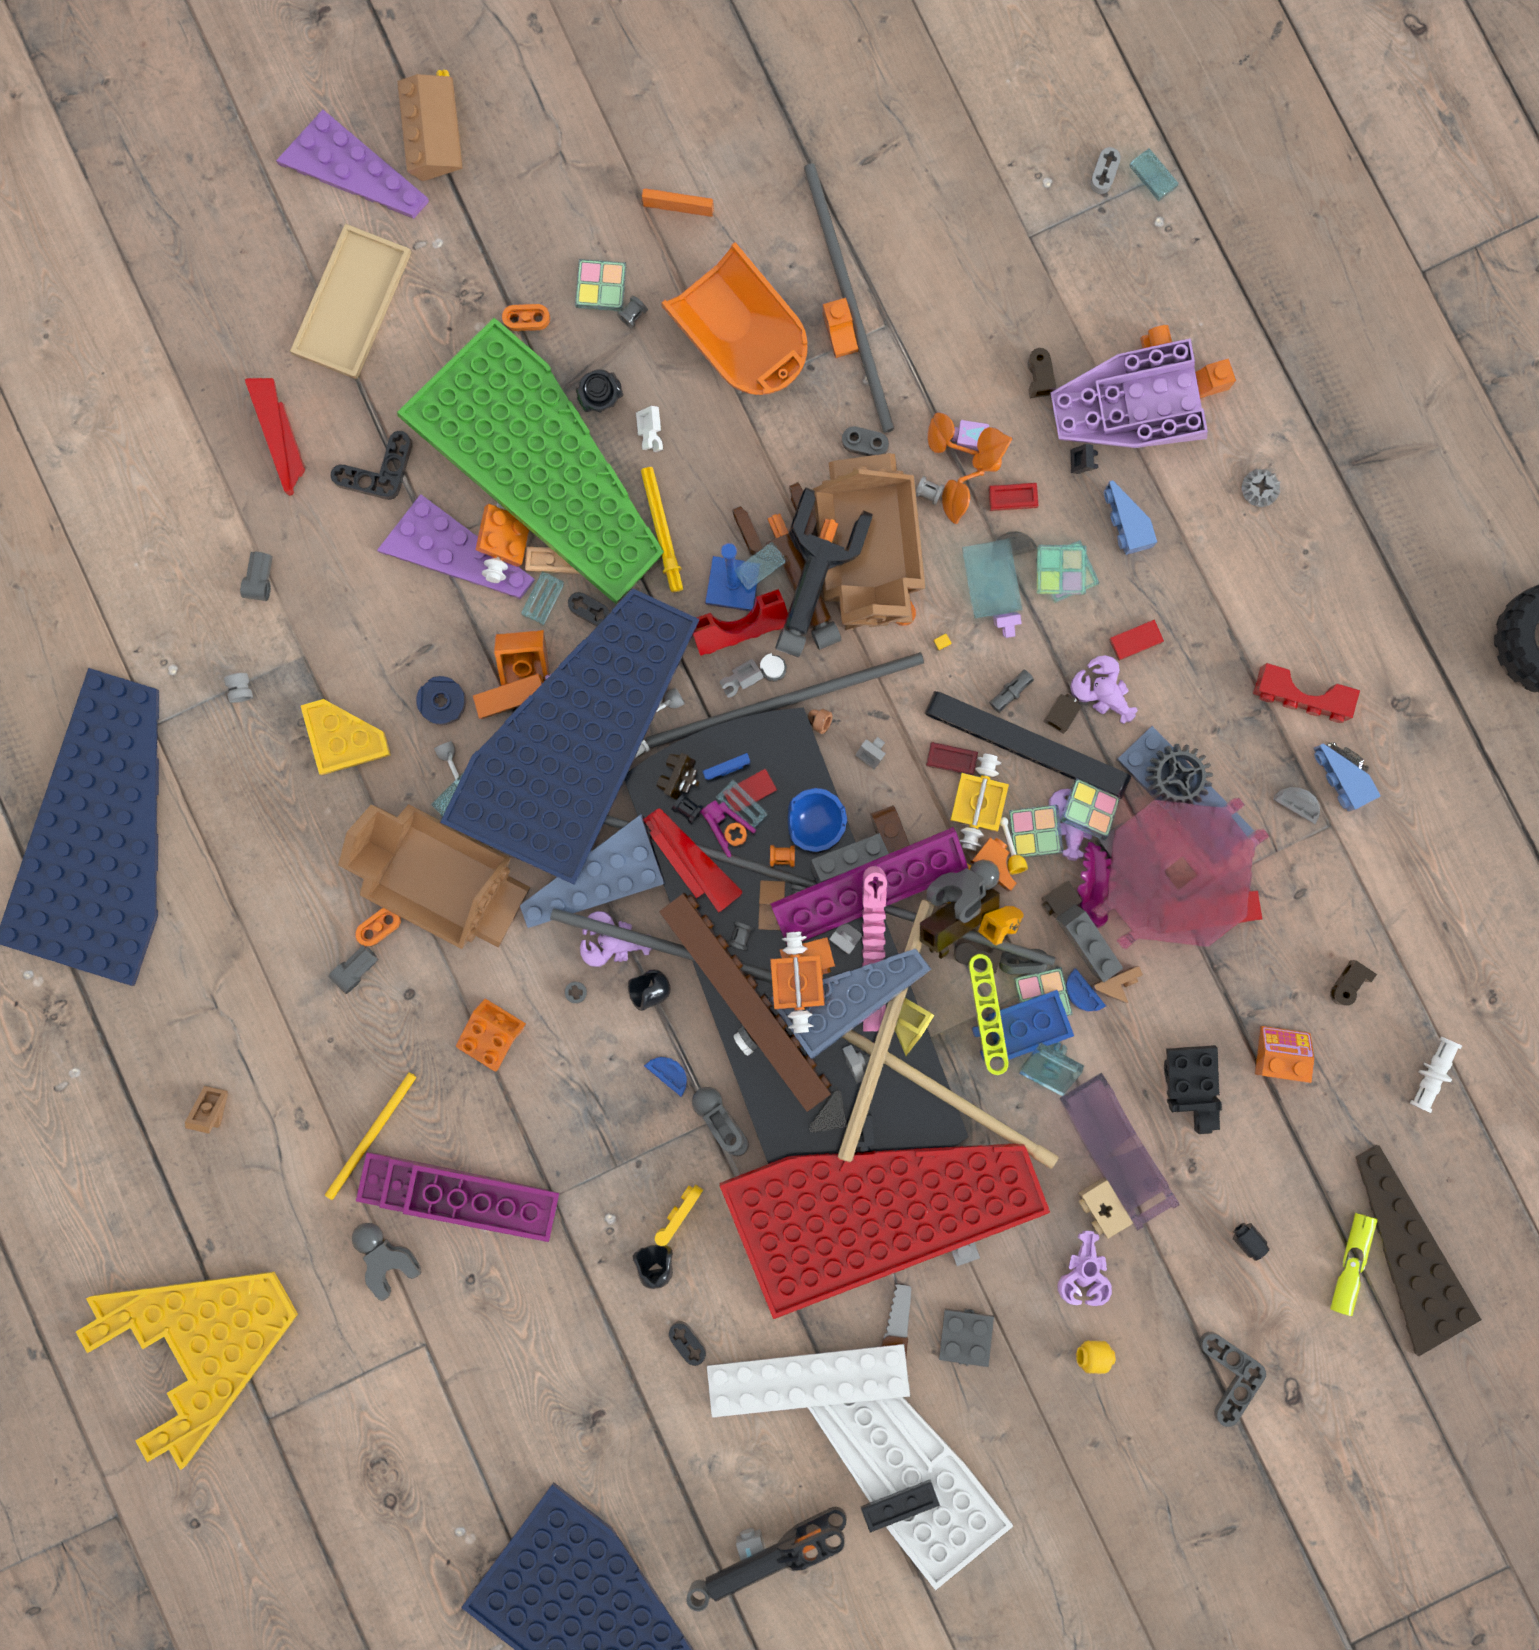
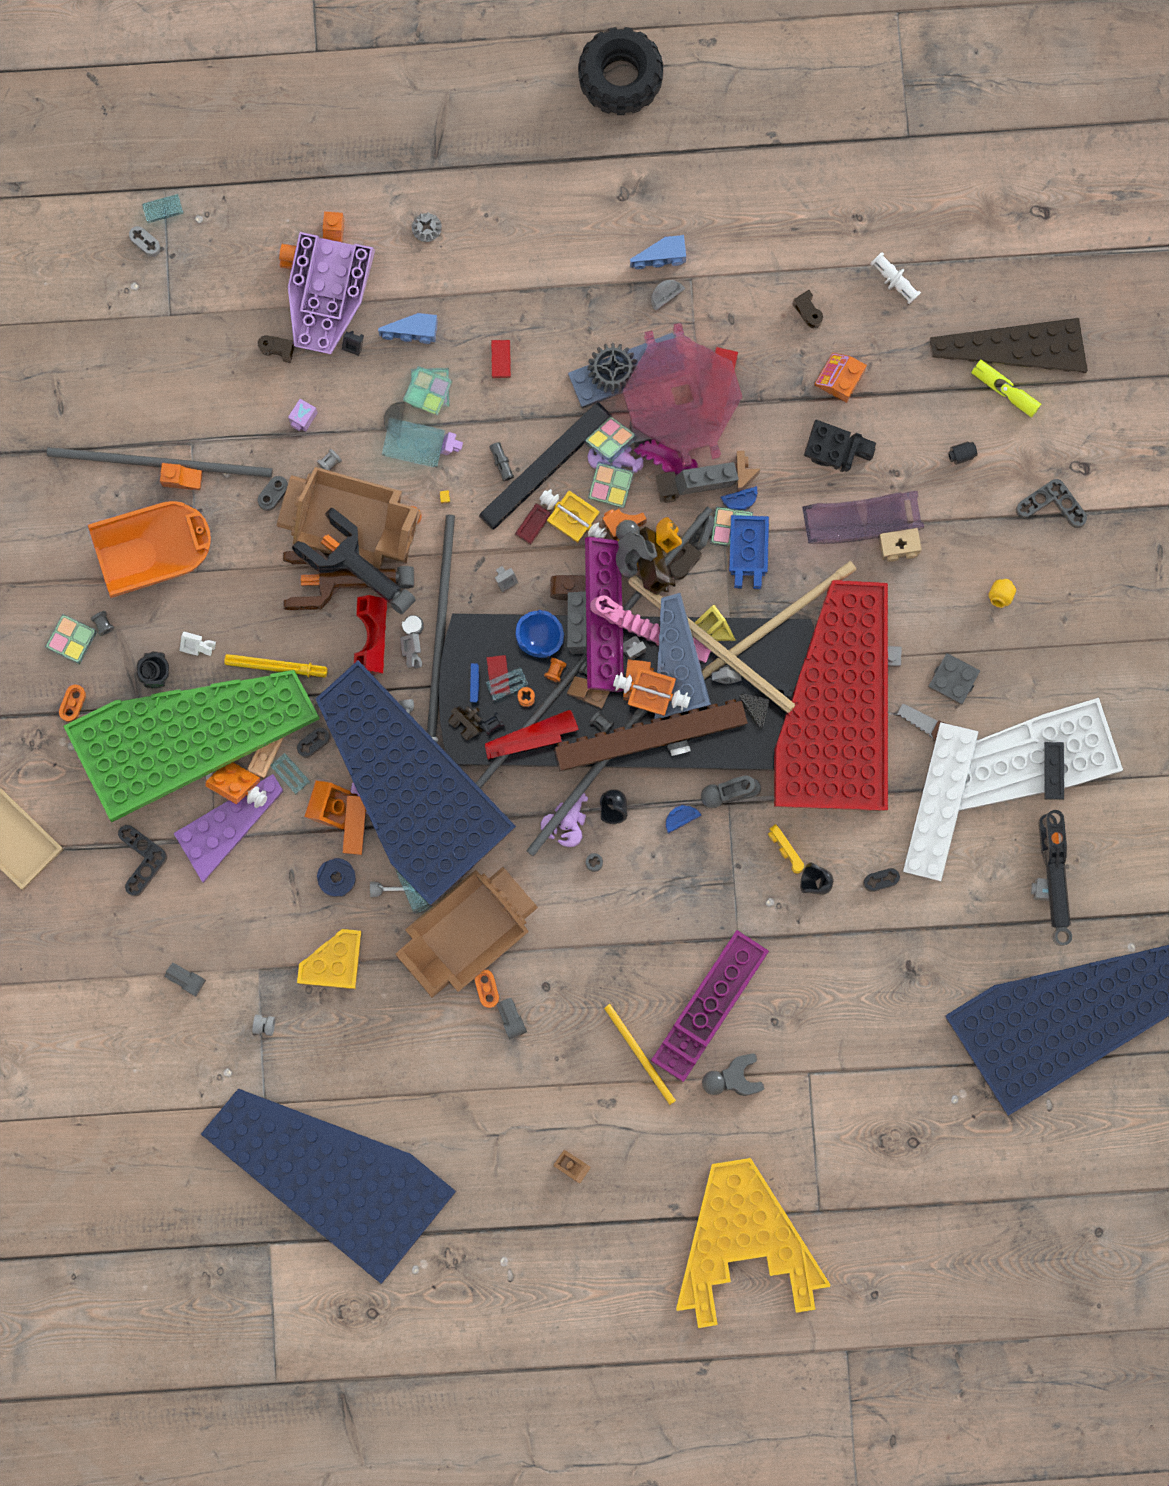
camera: 70 degrees left, 5 degrees down
(277, 431) = (80, 922): red wedge -> none
(489, 1034) = (601, 937): orange bracket -> none
(612, 871) = (516, 794): sand blue wing -> none
(678, 202) = (34, 557): orange tile -> none
(714, 814) = (506, 706): magenta plant -> none
(724, 585) = (337, 629): blue tile -> none
(760, 565) = (335, 603): clear light blue tile -> none
(821, 721) = (467, 604): nougat tile -> none
(991, 446) = (324, 405): orange plant -> none
(993, 1025) = (718, 570): neon yellow beam -> none
(1013, 496) = (359, 403): red tile -> none
(1016, 863) = (628, 507): yellow hinge -> none
(1052, 1068) = (785, 541): clear light blue tile -> none
(1062, 712) = (532, 431): dark brown brick -> none
(1086, 1271) = (940, 576): lavender animal -> none
(1105, 689) = (528, 394): lavender animal -> none
(1276, 684) = (574, 274): red arch -> none
(1349, 755) = (646, 244): clear smoke tile -> none

